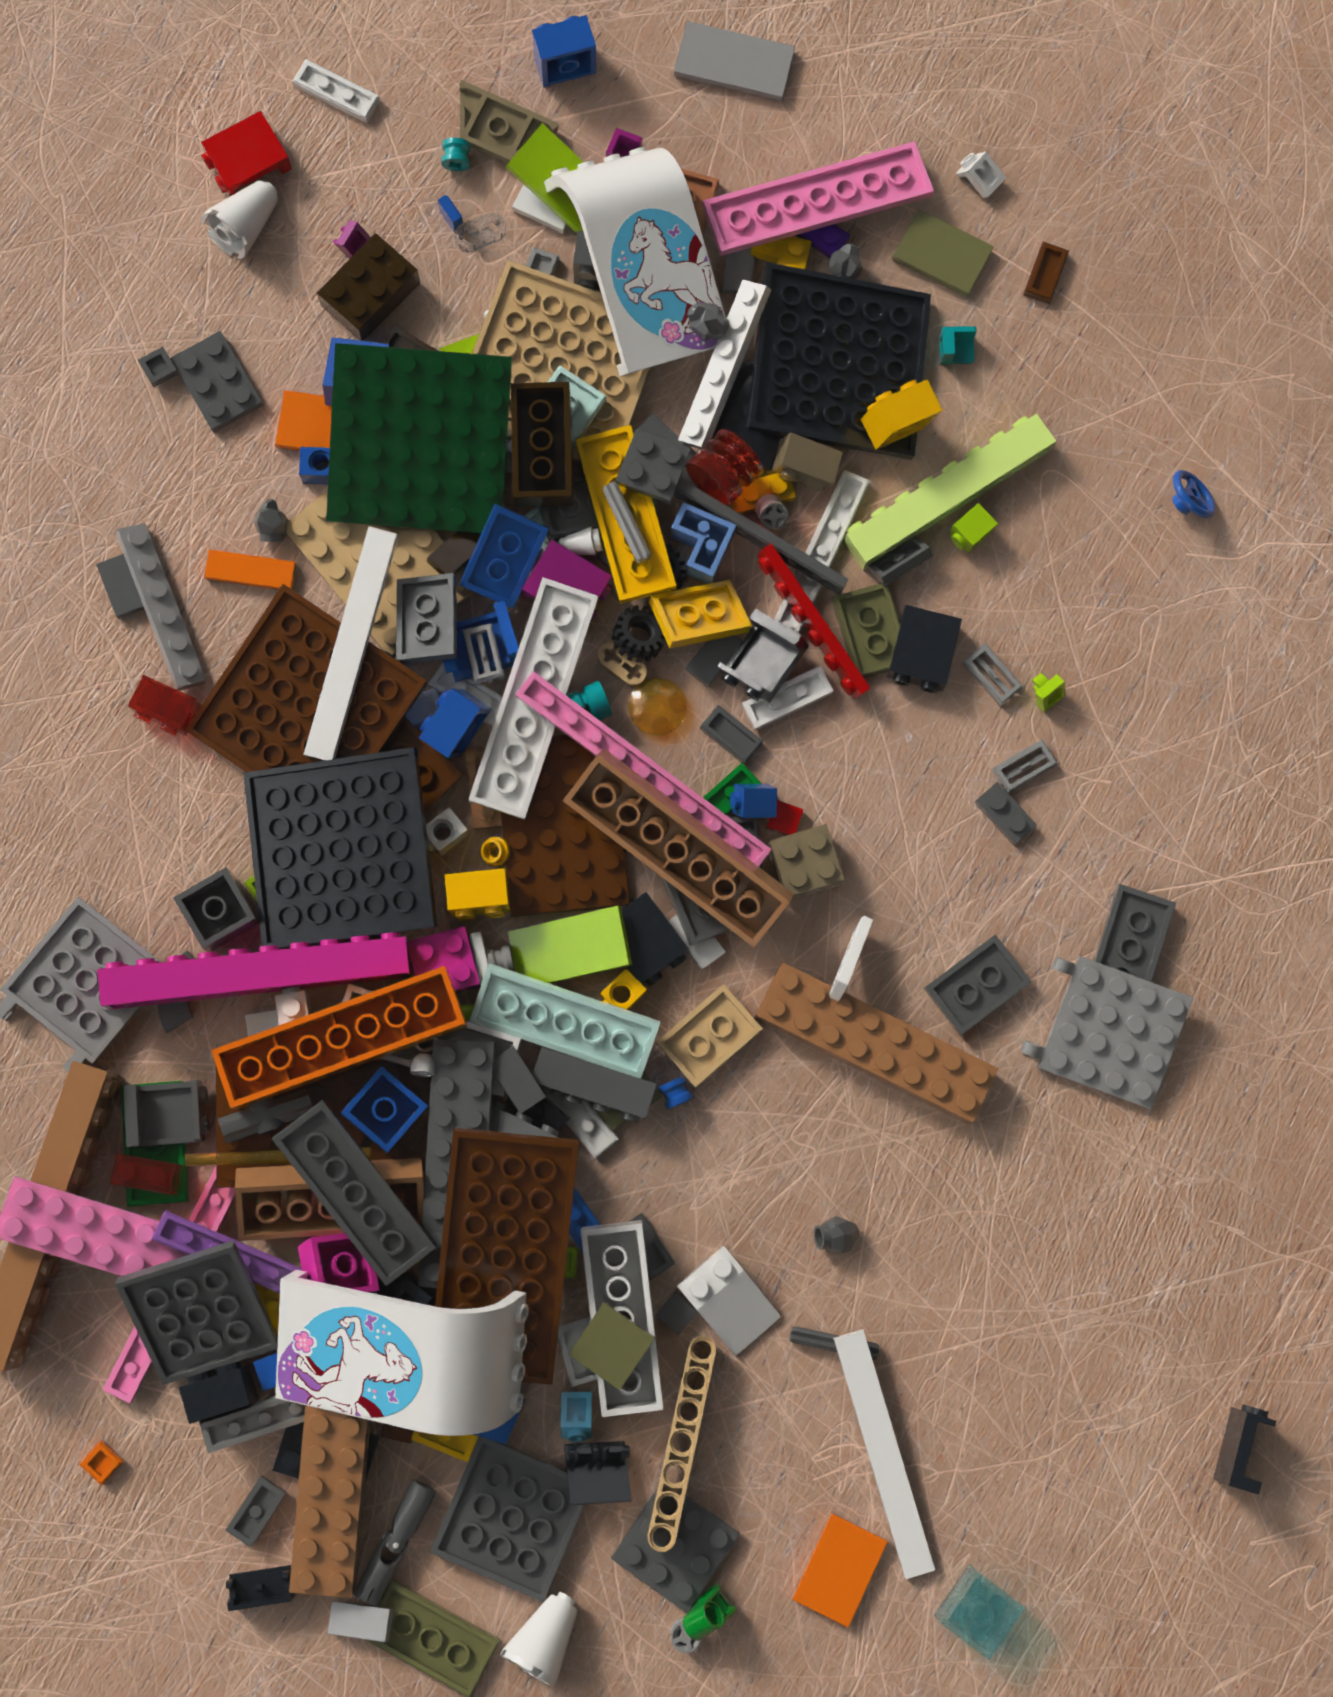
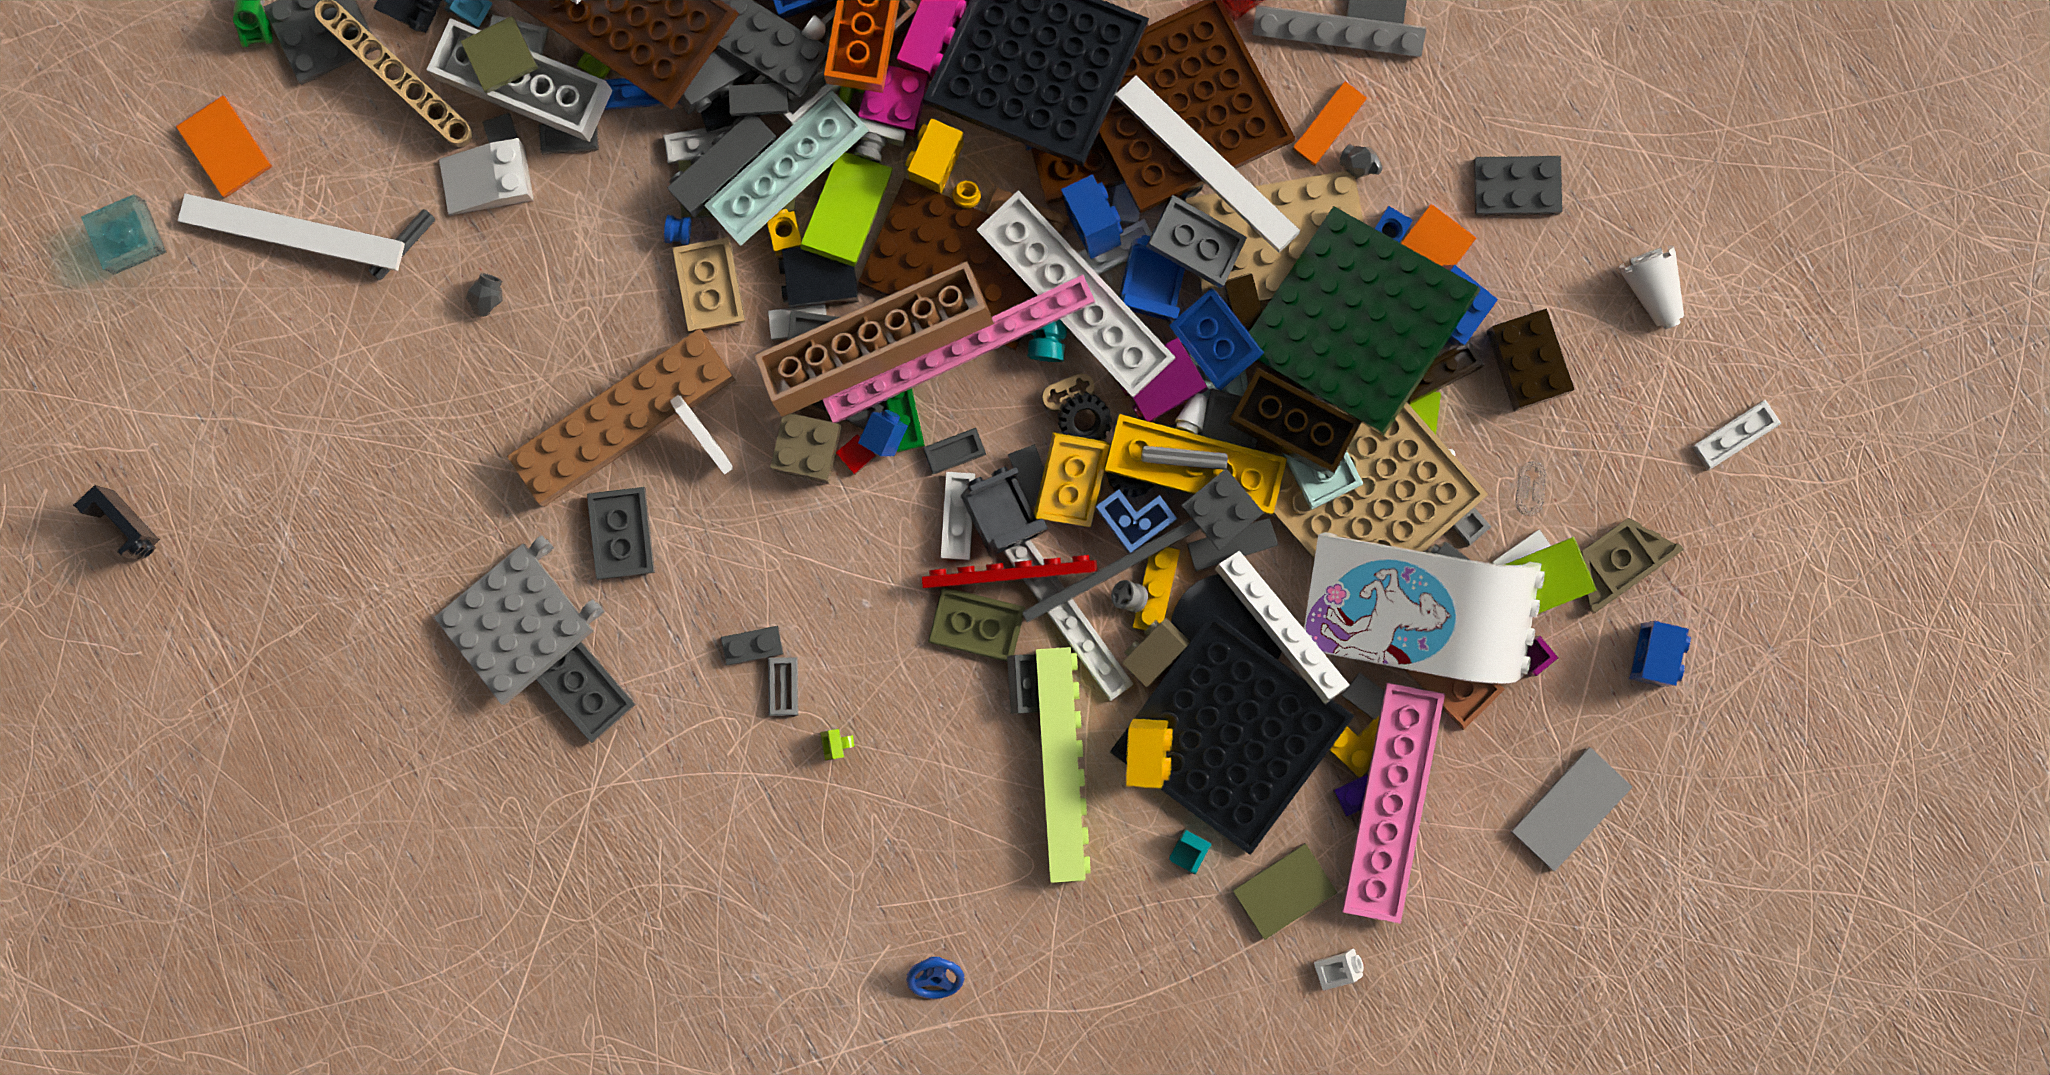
camera: 125 degrees right, 5 degrees up
(158, 367) = (1558, 141): dark grey plate -> none
(244, 153) = (1716, 319): red panel -> none
(351, 238) = (1583, 370): magenta tile -> none
(449, 212) = (1561, 470): blue tile -> none
(451, 821) = (1010, 172): white brick -> none
(455, 154) = (1615, 506): teal wheel -> none
(488, 675) = (1116, 269): light grey tile -> none
(657, 706) = (1014, 401): clear yellow dish -> none
(707, 321) = (1326, 630): dark grey rock -> none
(724, 467) = (1186, 571): clear red wheel -> none
(846, 262) = (1319, 794): dark grey rock -> none
(924, 649) = (932, 657): black panel -> none
(972, 528) = (1015, 763): lime brick -> none
(984, 682) = (854, 711): light grey tile -> none
(1046, 272) = (1215, 974): reddish brown tile -> none

